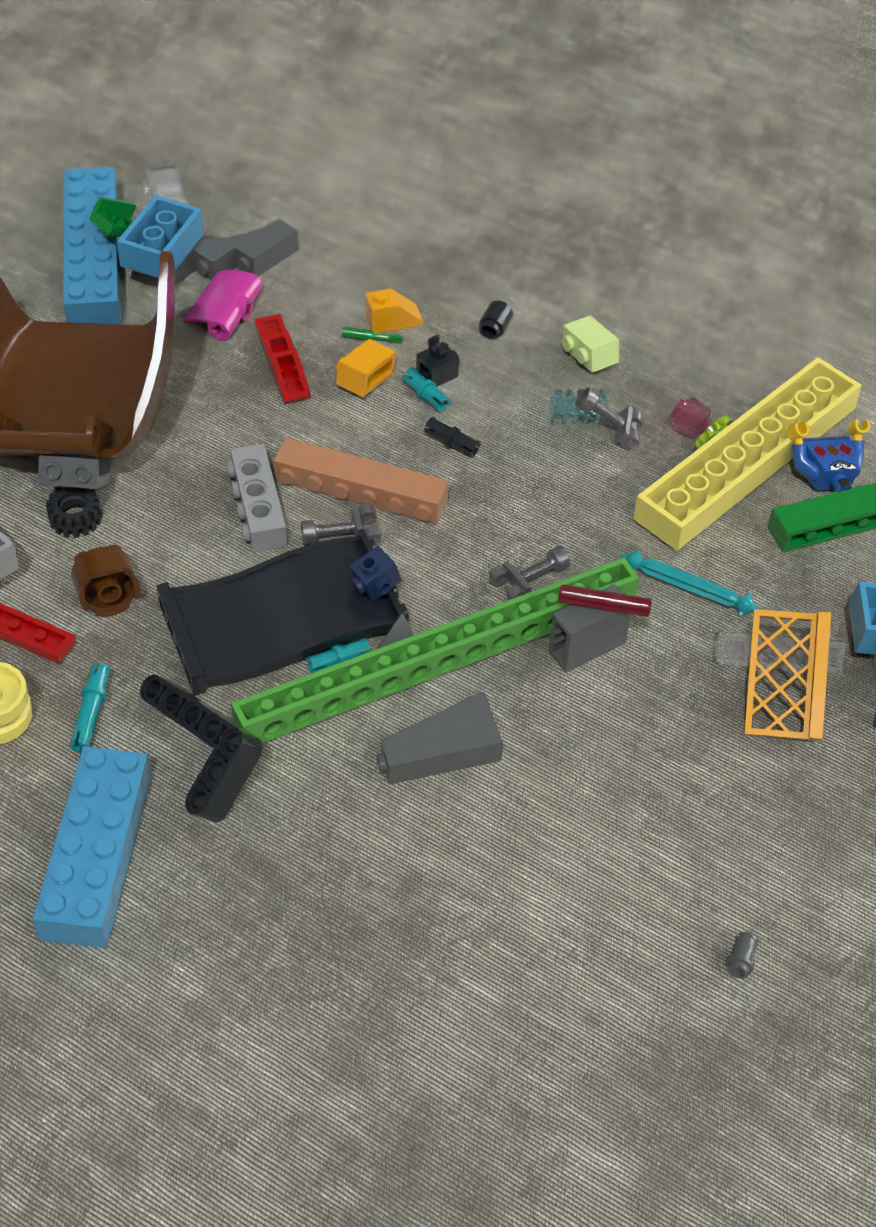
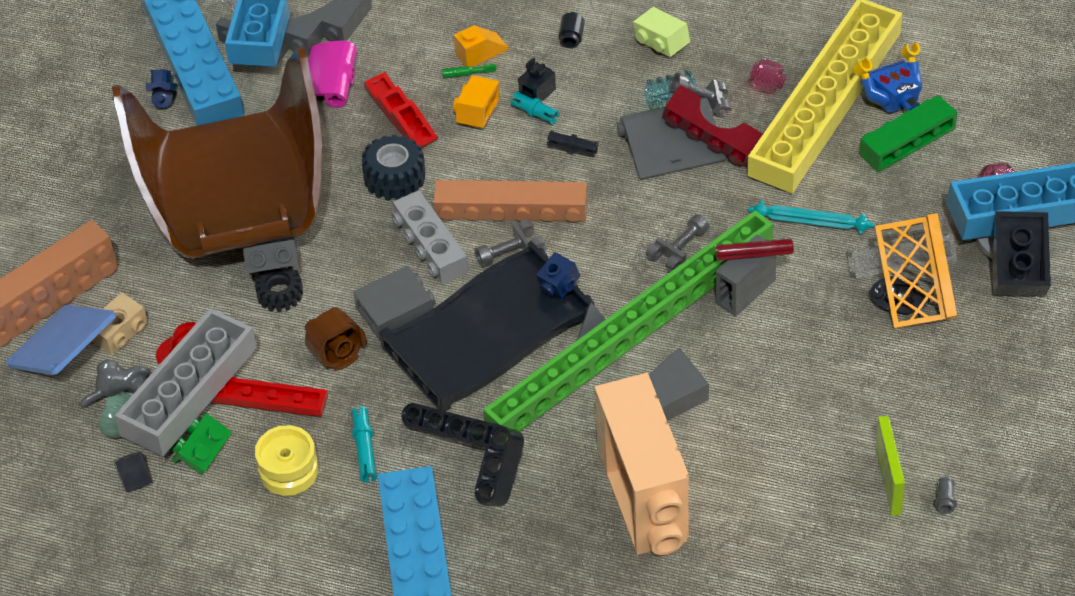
camera: 10 degrees left, 0 degrees up
(45, 271) = (161, 88): none -> dark blue hips
(112, 216) = (207, 21): green bracket -> none
(190, 554) = (393, 300): none -> dark grey brick
(248, 413) = (393, 167): none -> black wheel
(337, 655) = (548, 351): teal pin -> none
(384, 820) = (642, 464): none -> light nougat brick
(563, 458) = (664, 148): none -> dark grey door
(582, 431) = (685, 113): none -> dark red arch
(684, 900) = (889, 465): none -> lime tile
(715, 428) = (790, 85): lime gear -> none
(764, 688) = (880, 296): none -> black arm

